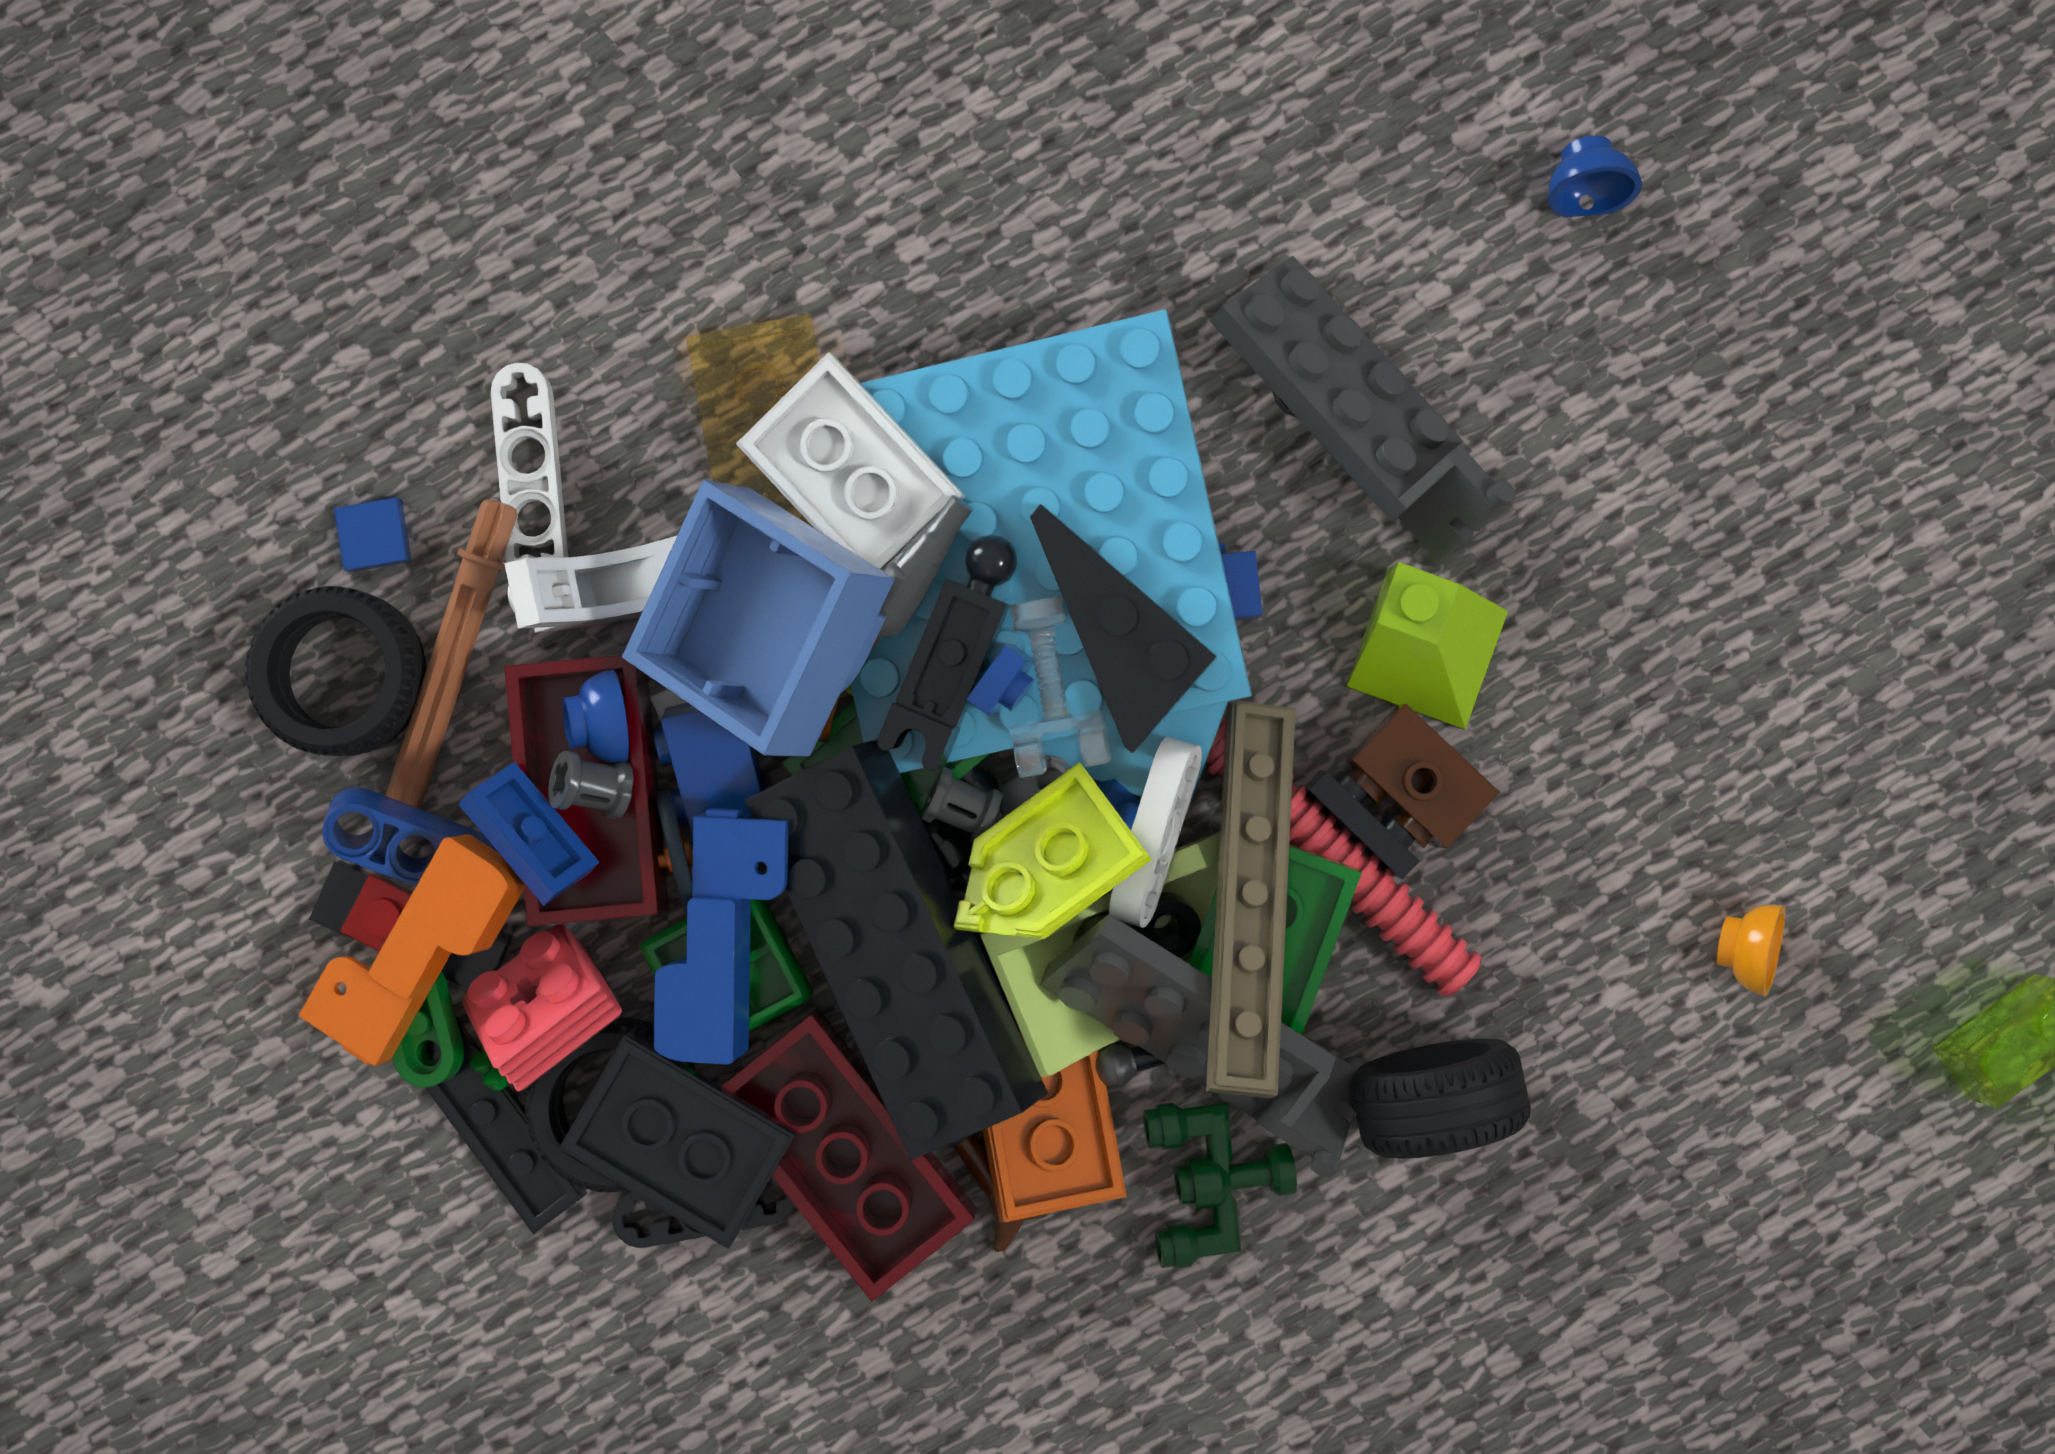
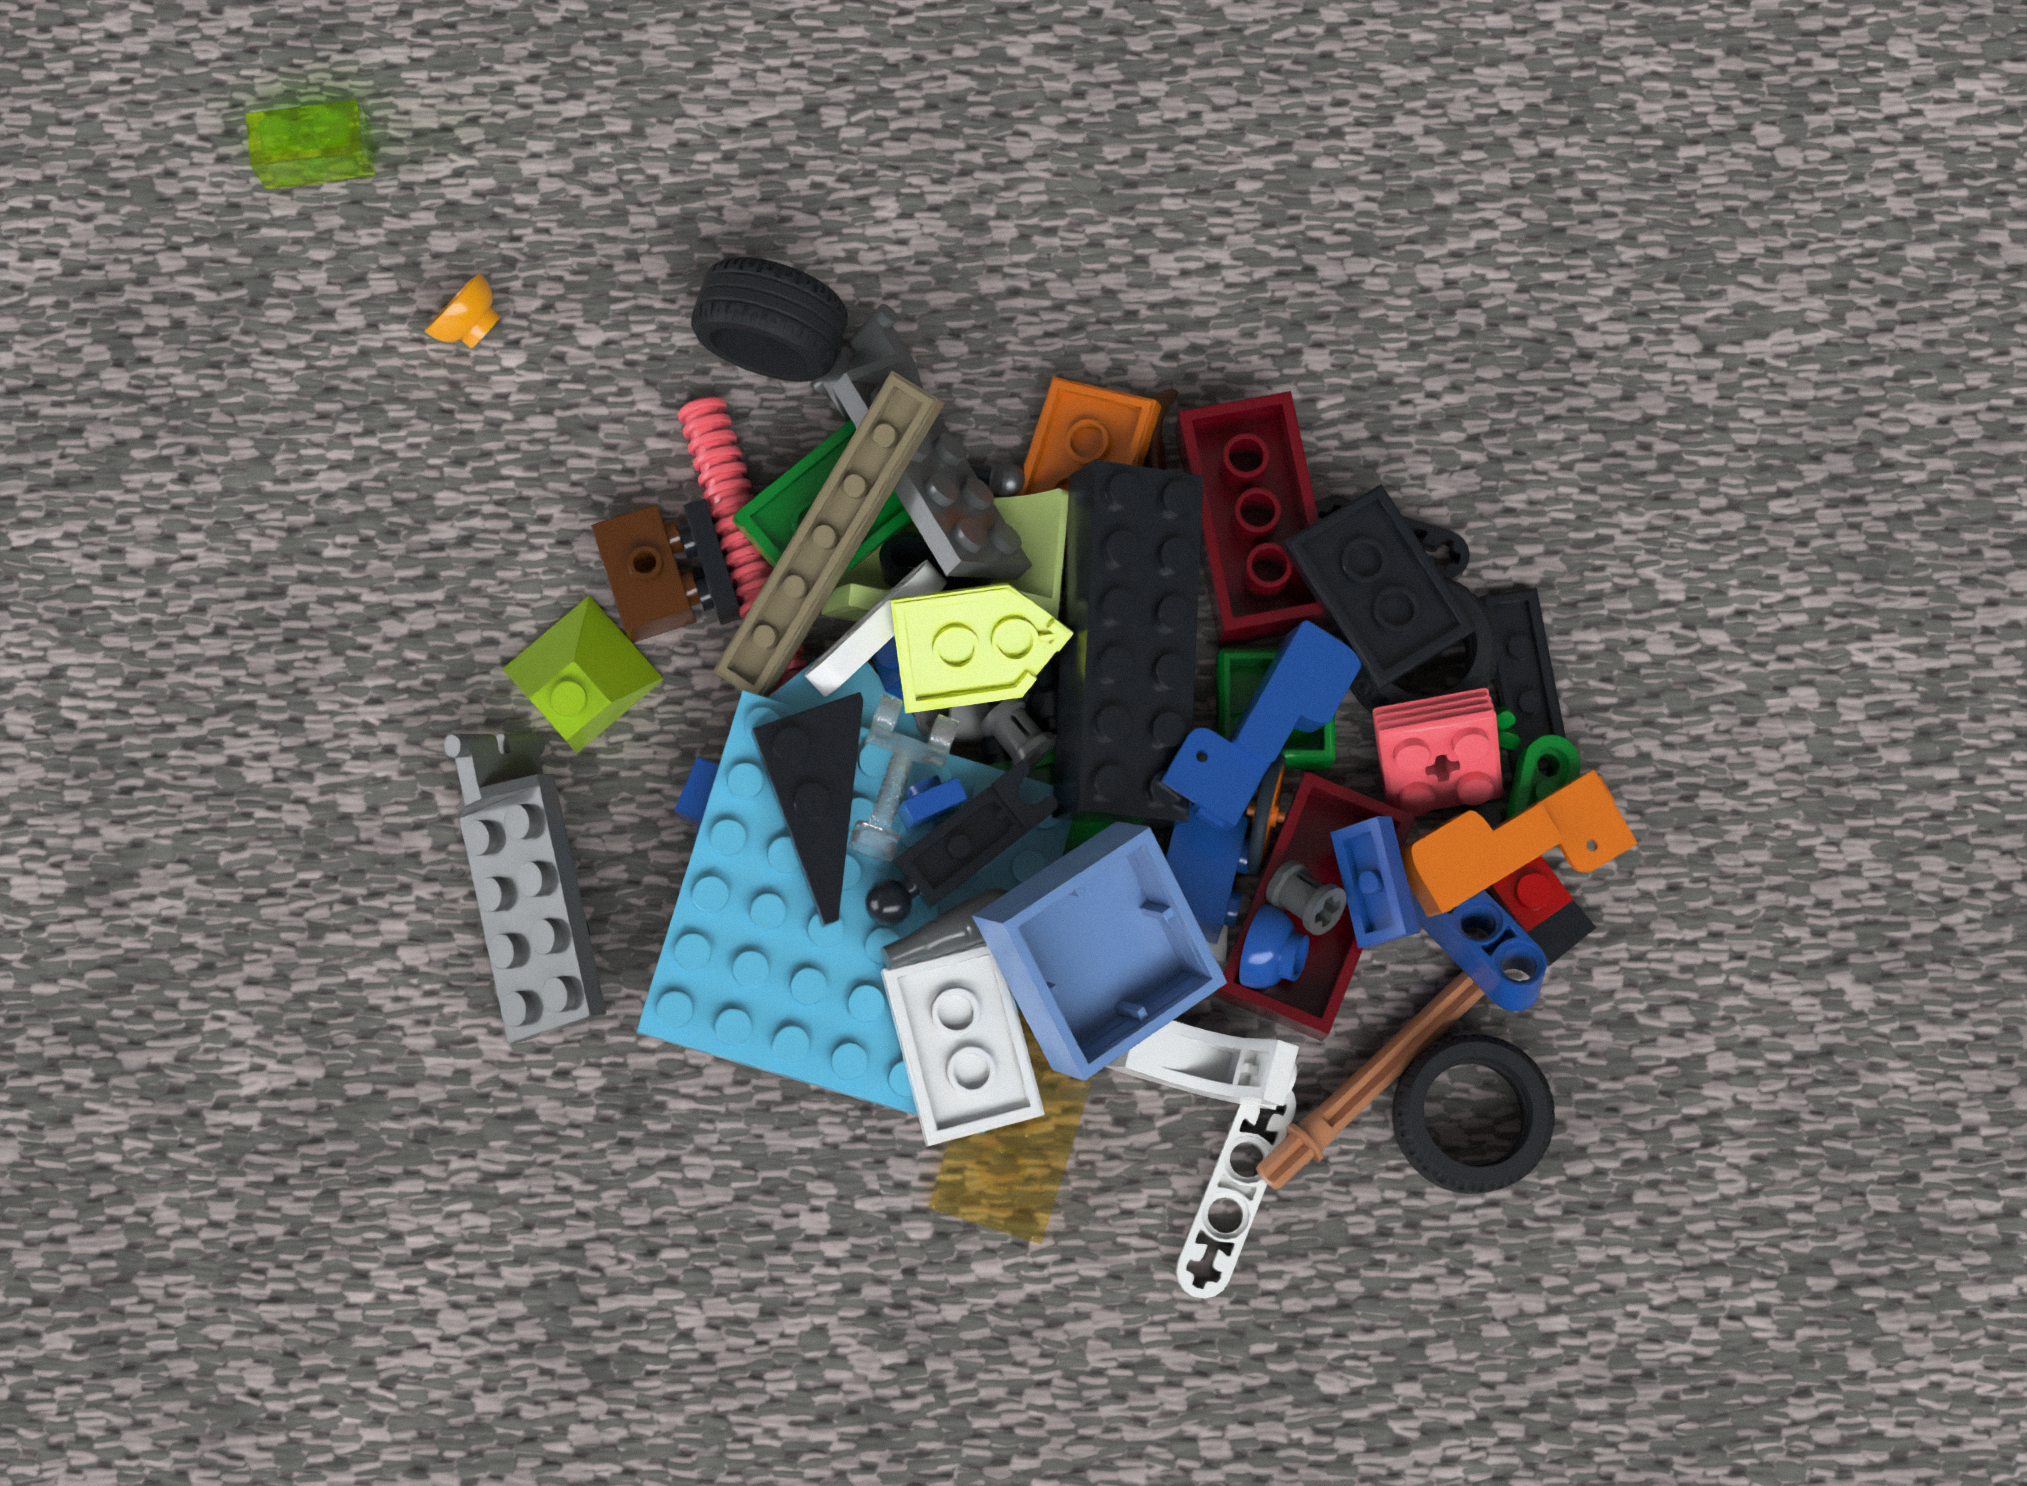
camera: 150 degrees left, 10 degrees down
(372, 535) = (1388, 1218): blue tile -> none
(1209, 1179) = (981, 356): dark green piece -> none
(1595, 170) = (225, 980): blue piece -> none

